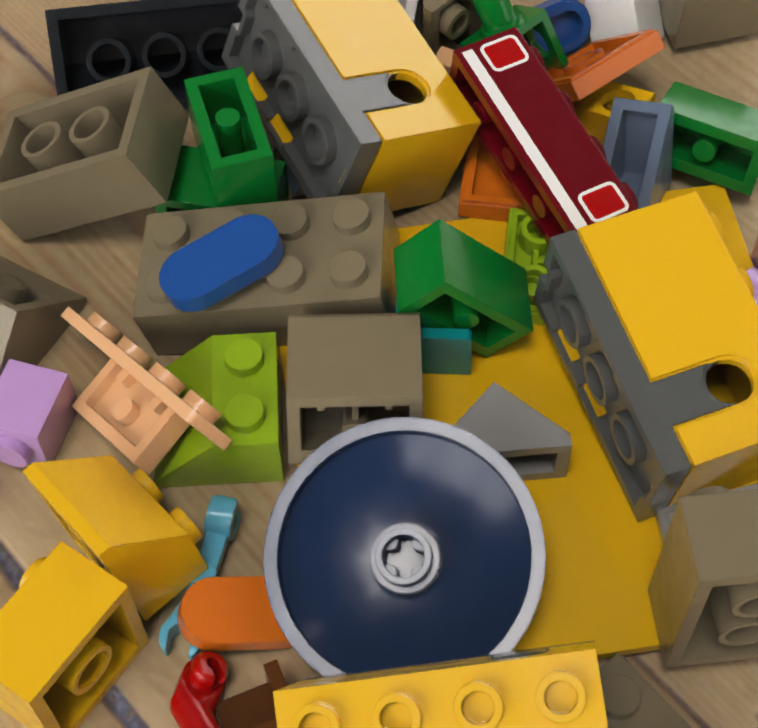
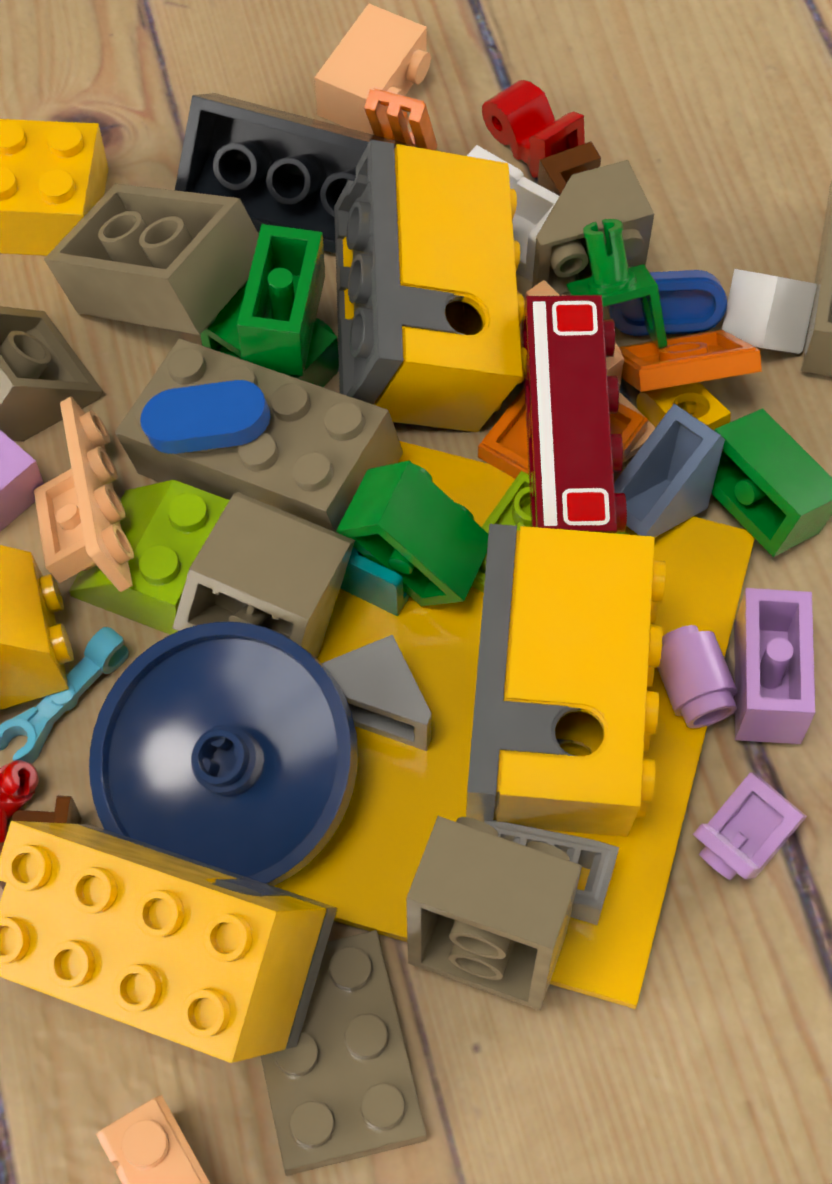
camera: 25 degrees right, 5 degrees up
(230, 615) = (56, 737): orange tile -> none

